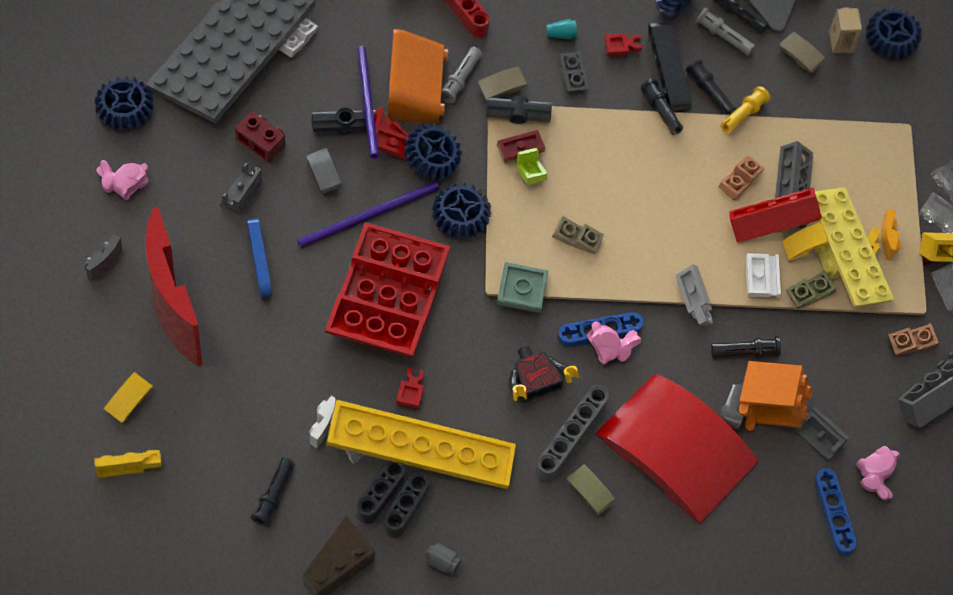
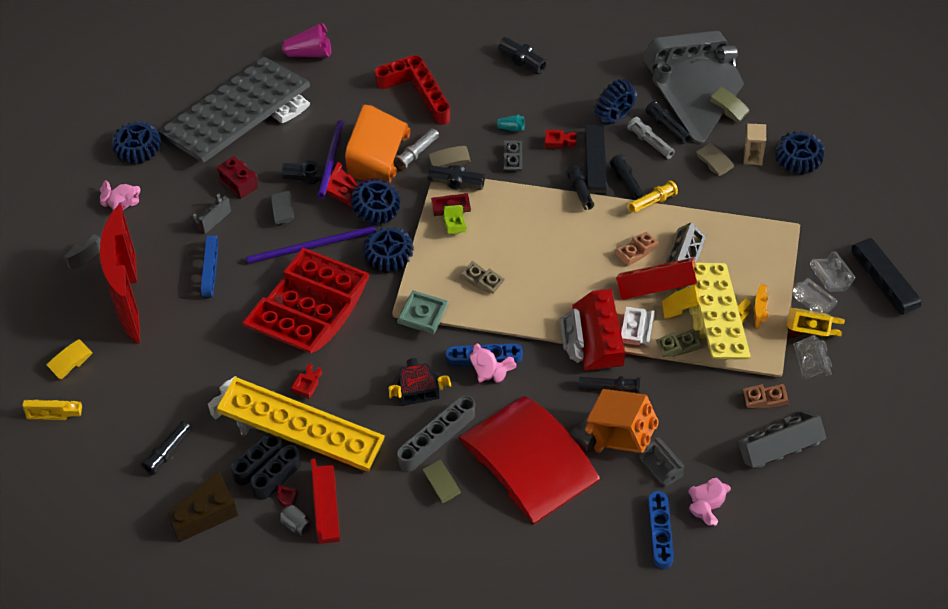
camera: 20 degrees right, 10 degrees down
(423, 530) = (286, 495): none -> dark red tile
(469, 533) = (325, 503): none -> red panel
(726, 285) = (600, 331): none -> red slope

